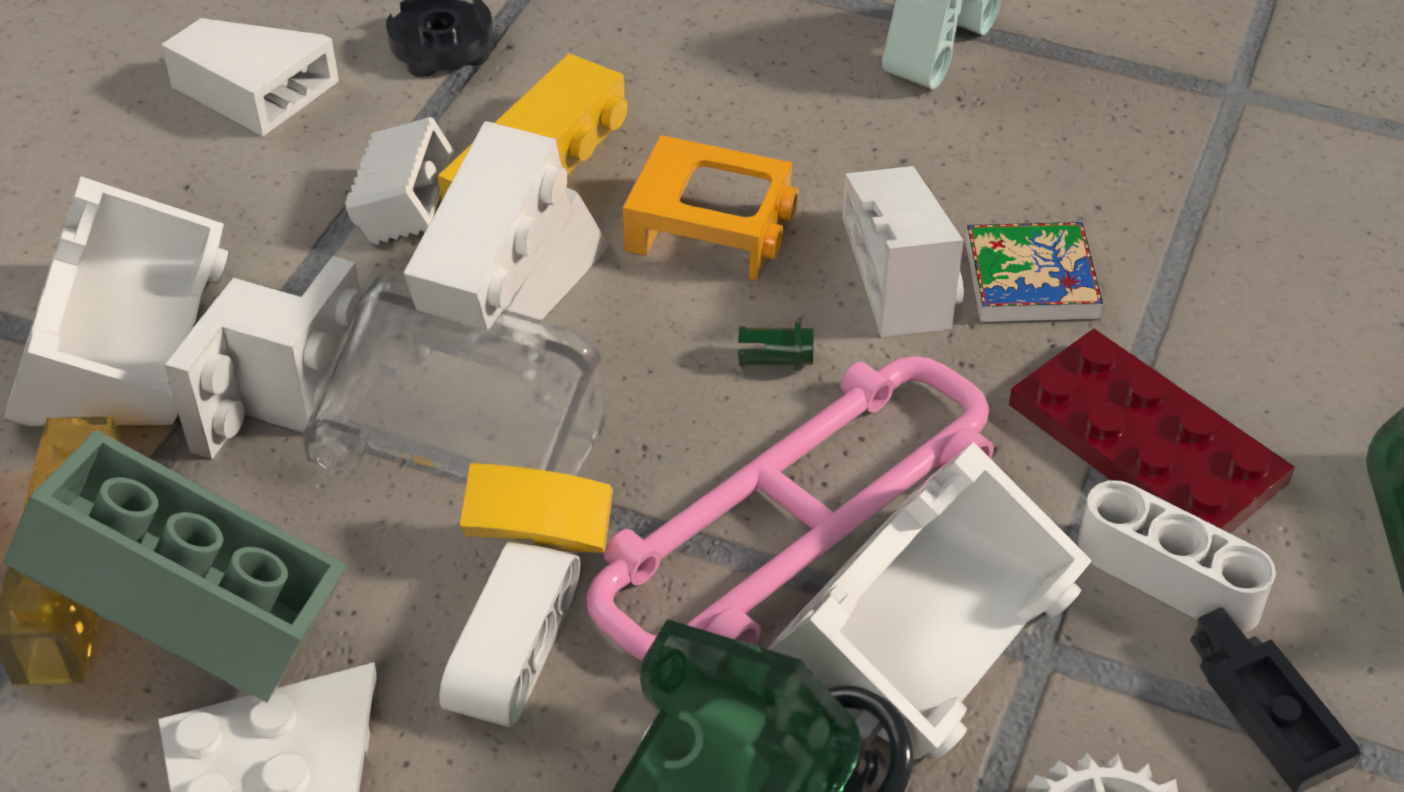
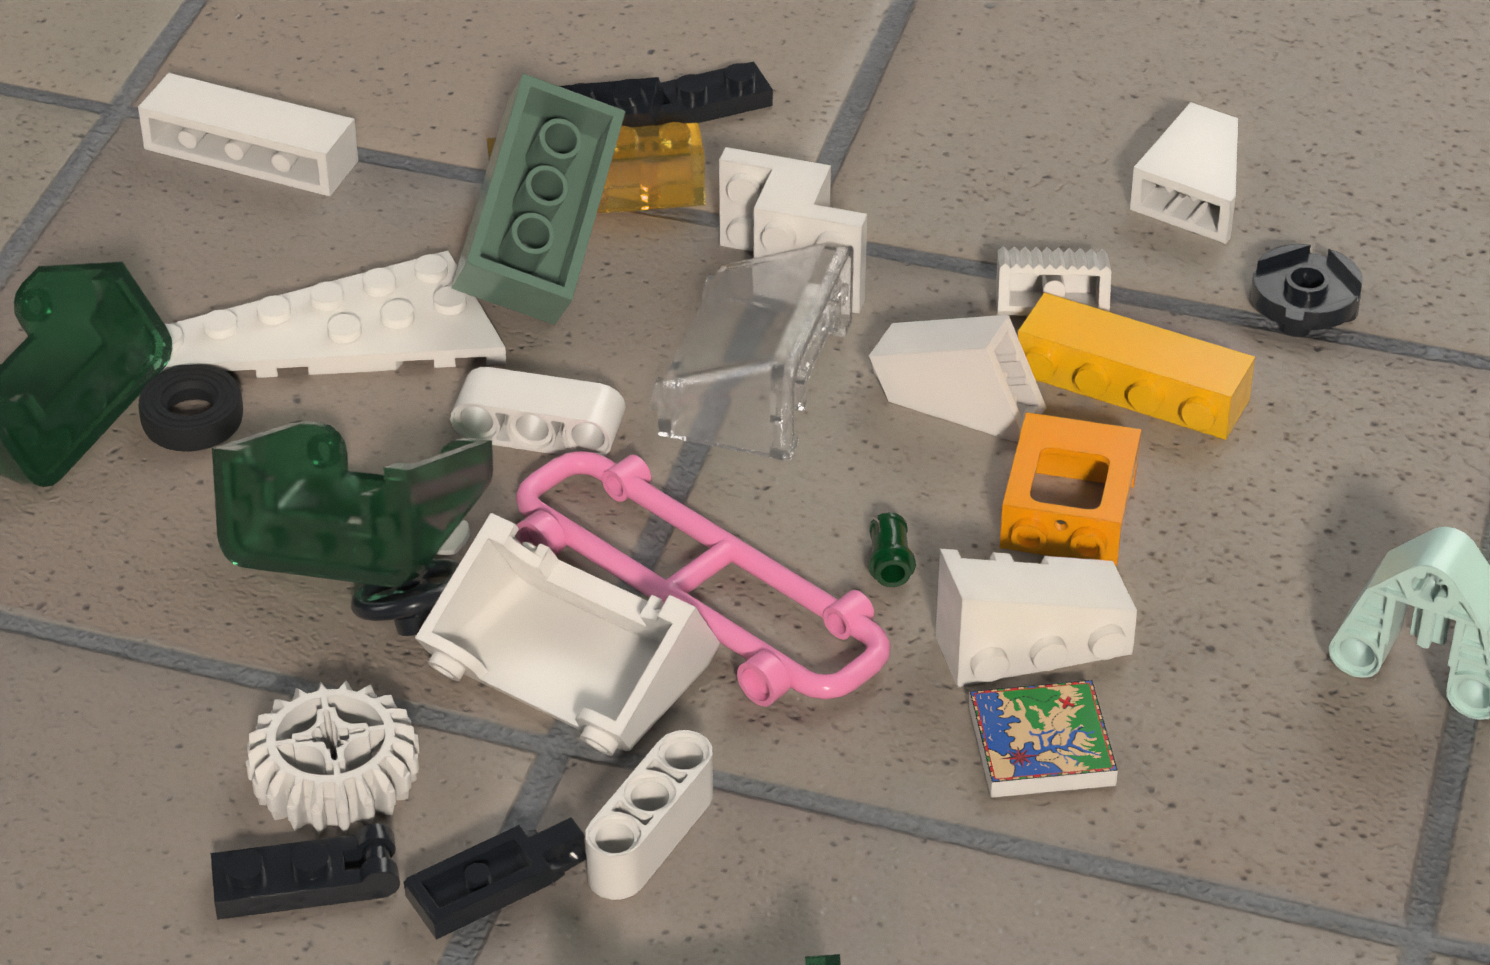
camera: 85 degrees right, 5 degrees down
(115, 309) = (879, 147): white windscreen -> none
(490, 227) = (882, 277): white wedge -> none
(537, 506) = (642, 396): yellow slope -> none
(1149, 432) = (818, 822): dark red plate -> none

